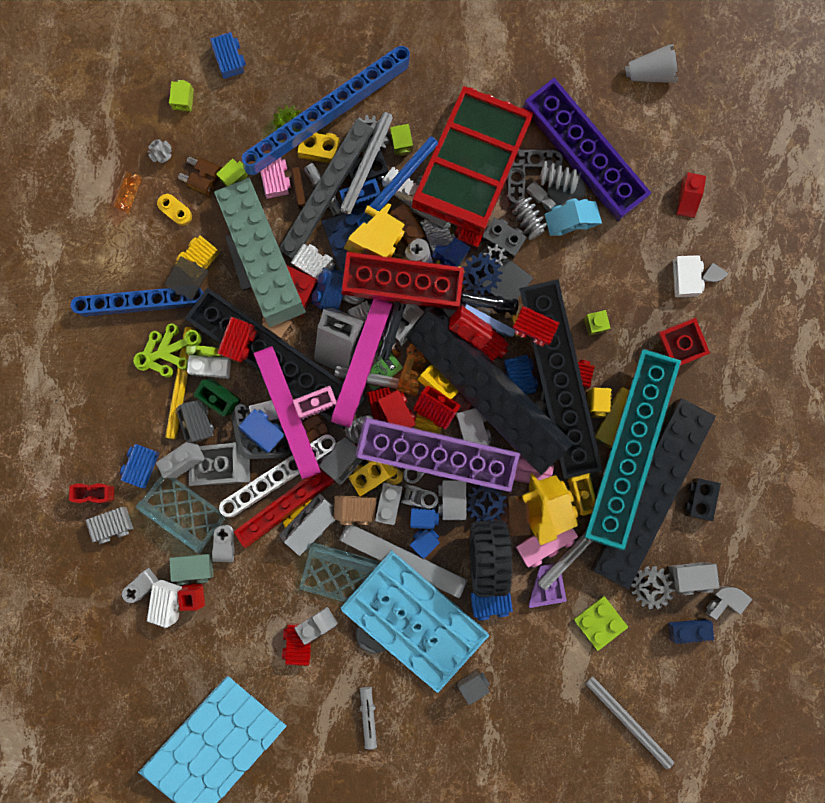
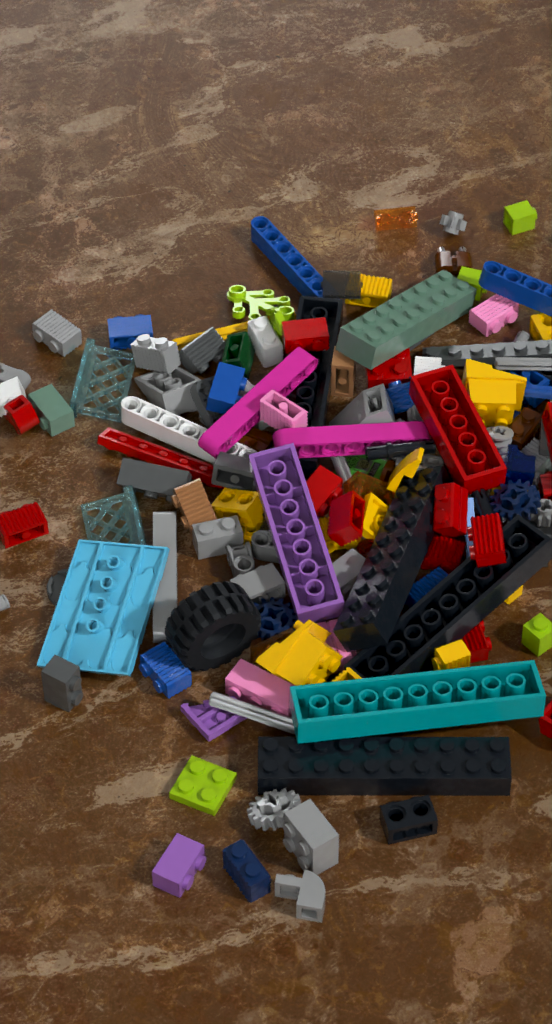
camera: 65 degrees right, 35 degrees down
(91, 493) = (80, 305): red brick -> none
(173, 209) = (404, 259): yellow plate -> none
(223, 547) = (89, 425): light grey piece -> none
(298, 187) = (500, 333): reddish brown tile -> none
(316, 625) = (56, 524): light grey brick -> none
(412, 337) = (406, 467): none -> yellow slope
(424, 518) = (219, 561): blue brick -> none
(425, 542) = (192, 580): blue brick -> none
(630, 723) = (102, 862): light grey axle -> none
(662, 674) = (178, 865): none -> medium lavender brick

